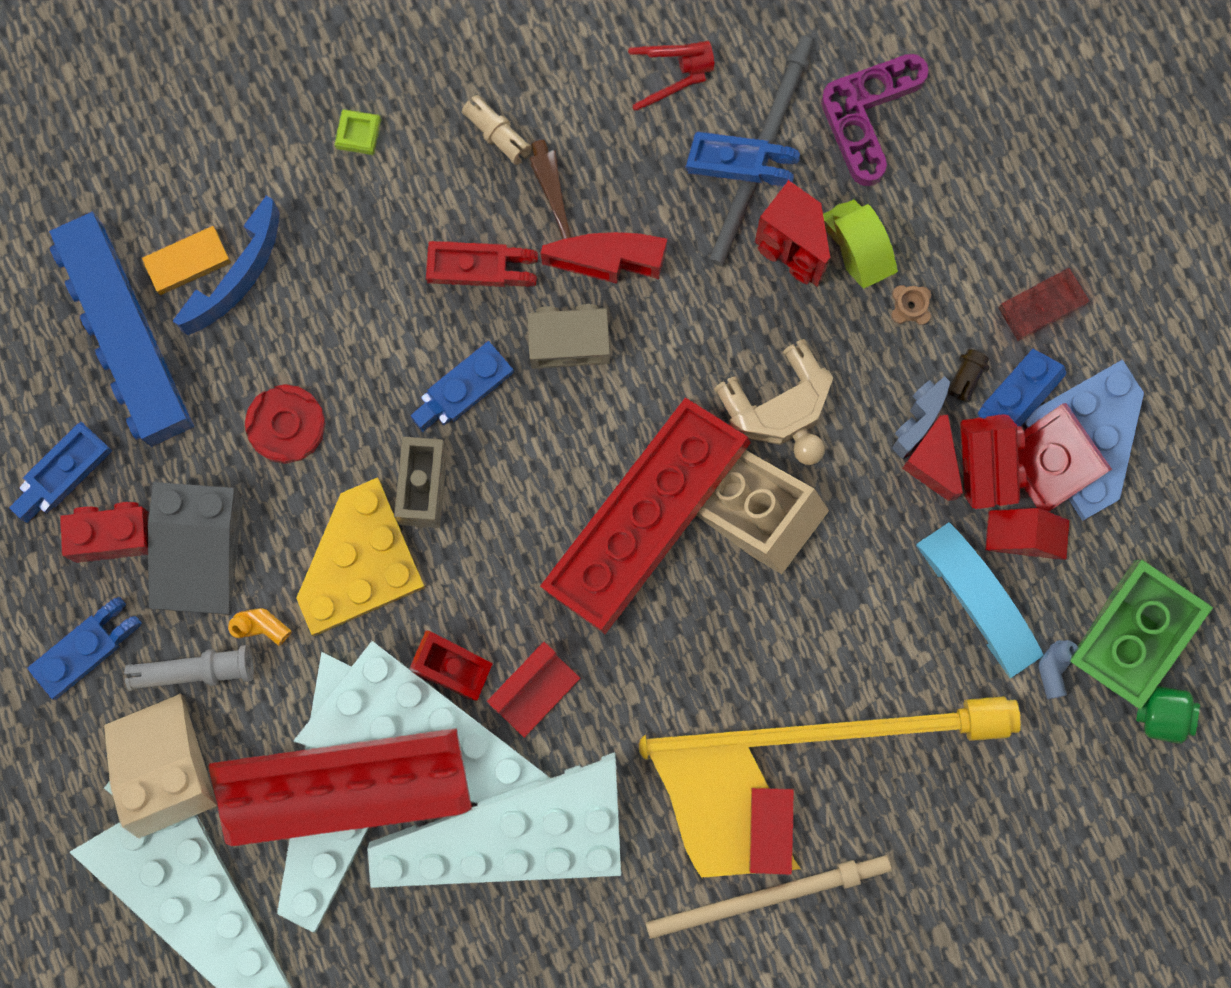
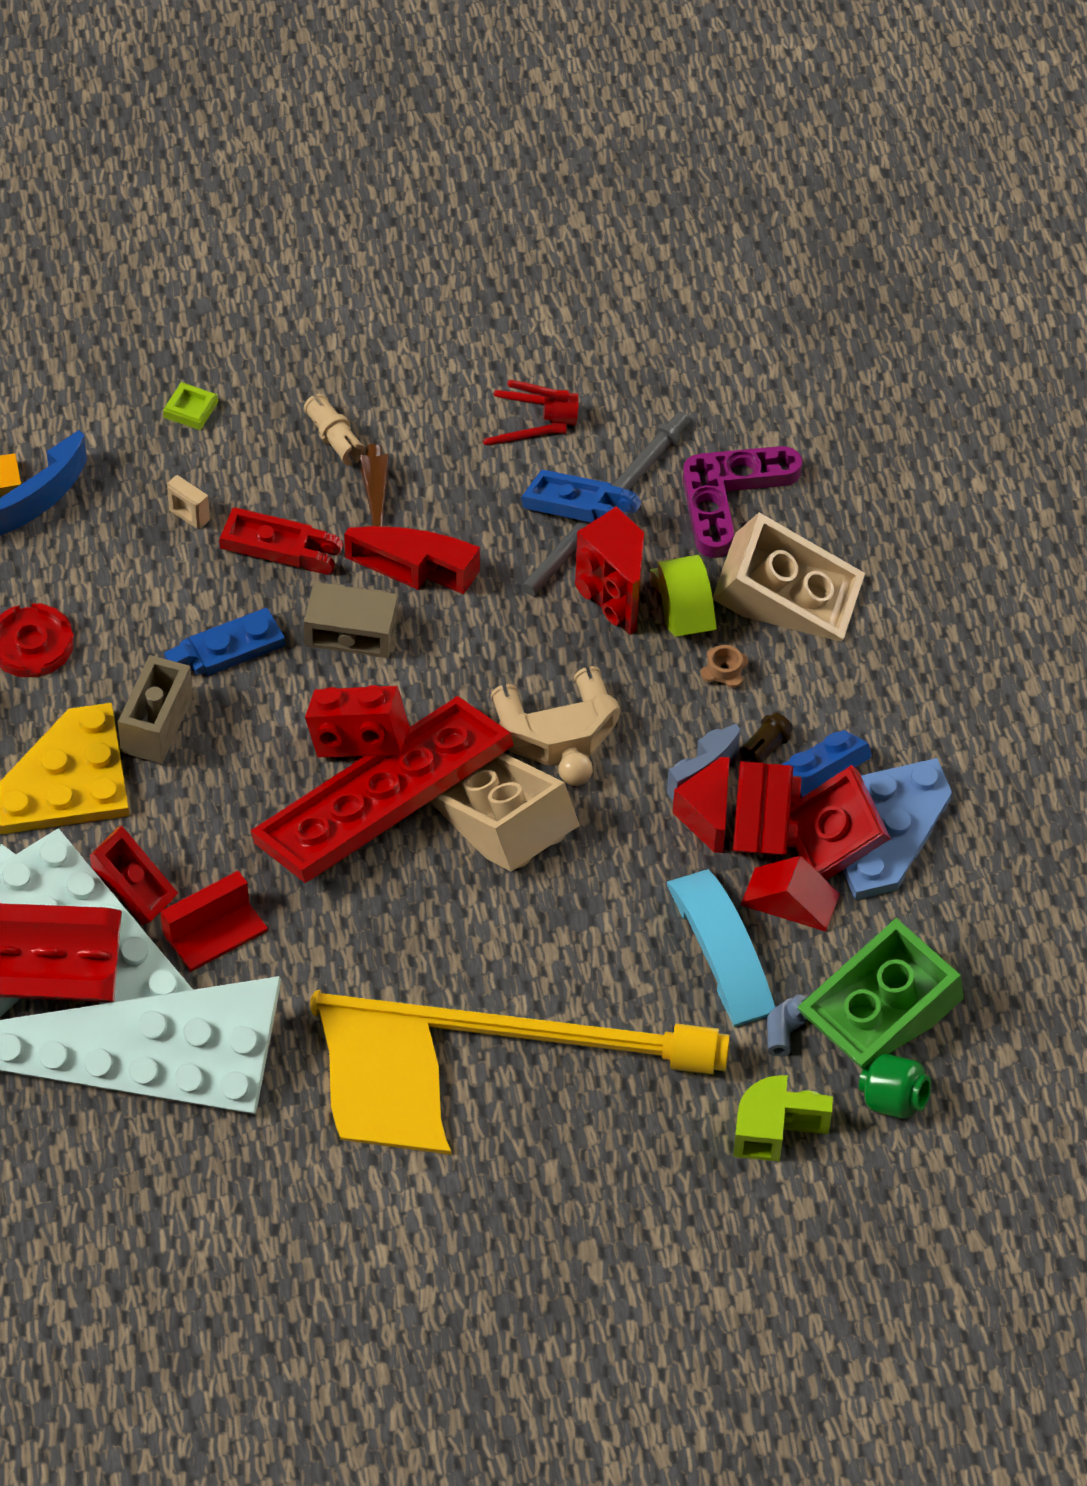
camera: 10 degrees right, 25 degrees down
(386, 244) = (188, 502): none -> tan tile
(606, 454) = (357, 721): none -> red brick
(771, 830) = (428, 1101): red tile -> none
(847, 874) = (499, 1166): tan bar -> none
(947, 202) = (787, 581): none -> tan slope
(1043, 304) = (865, 692): clear red plate -> none
(1063, 774) = (769, 1110): none -> lime brick

